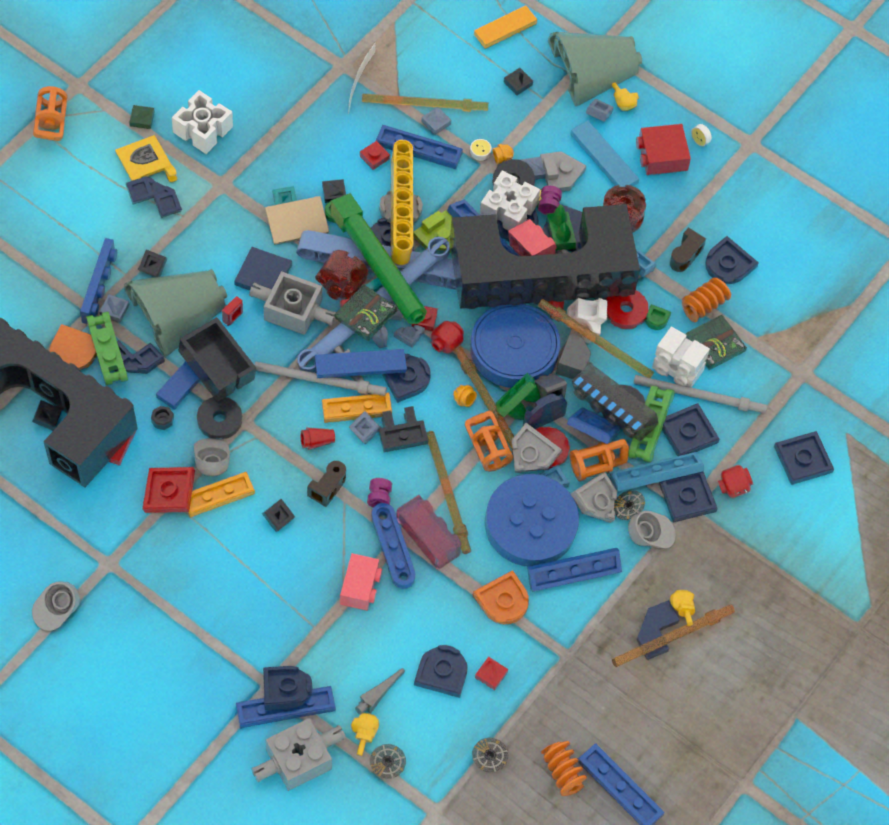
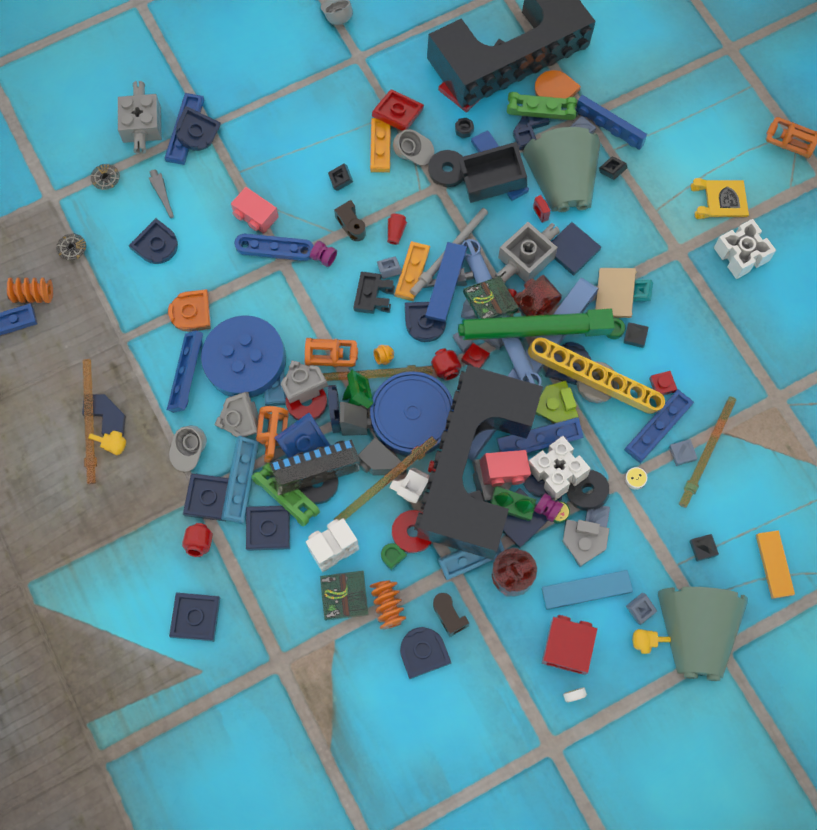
camera: 120 degrees right, 10 degrees up
(141, 117) = (771, 211): dark green tile -> none
(164, 196) = (677, 197): dark blue tile -> none
(365, 728) = (136, 171): yellow piece -> none
(369, 55) = (755, 400): white sticker -> none
(429, 532) = (272, 275): clear pink brick -> none
(459, 528) = (264, 302): clear orange bar -> none
(491, 673) = (134, 275): red tile -> none
(502, 153) = (622, 493): light orange plate -> none
(629, 504) = (221, 441): clear smoke piece -> none
(744, 403) = (271, 587): light grey bar -> none

